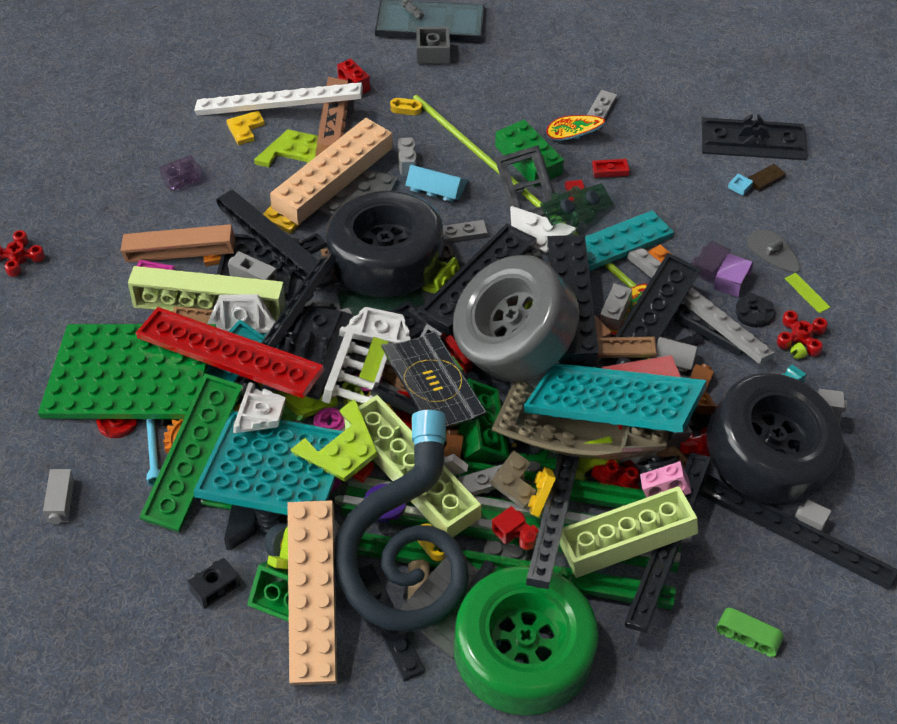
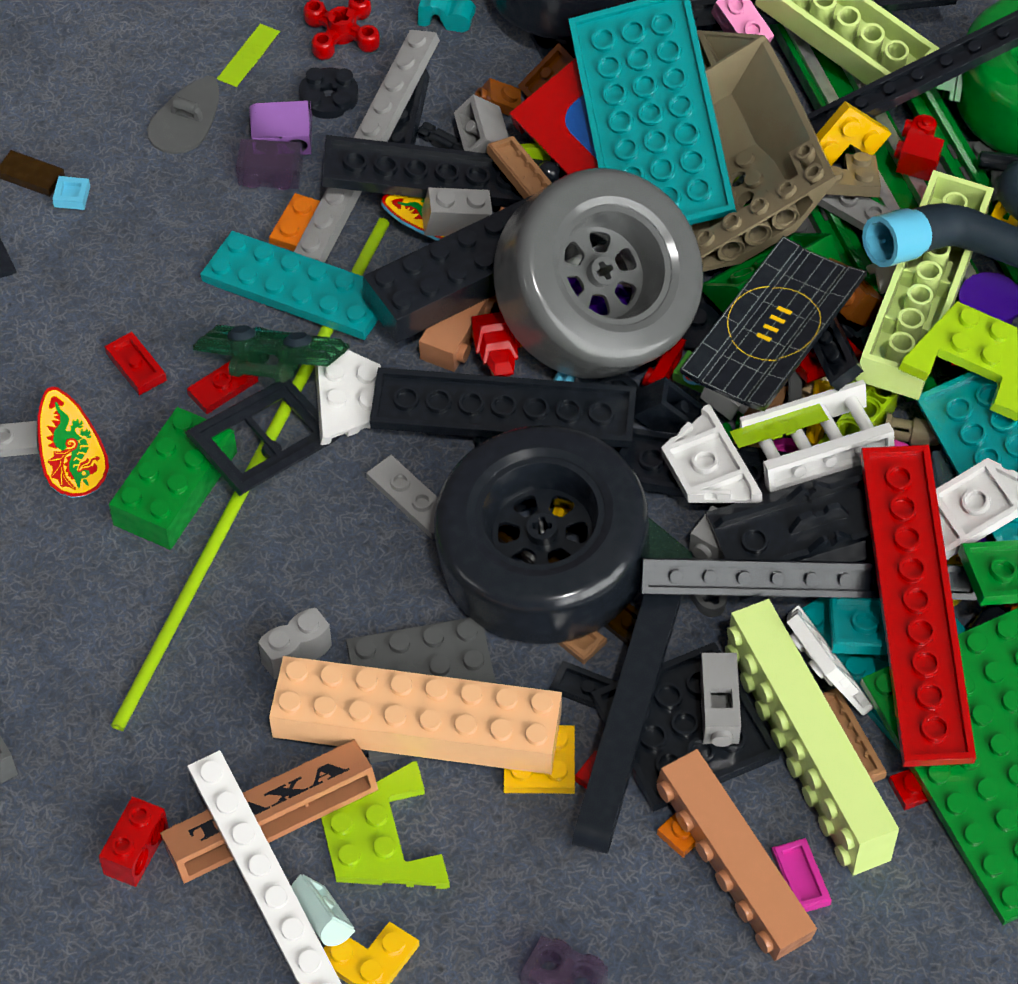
camera: 120 degrees left, 5 degrees up
(273, 114) = (322, 911): none -> light aqua brick
(405, 106) = (160, 723): yellow beam -> none
(435, 183) = (325, 570): medium azure slope -> none
(799, 351) = (377, 19): lime hinge -> none

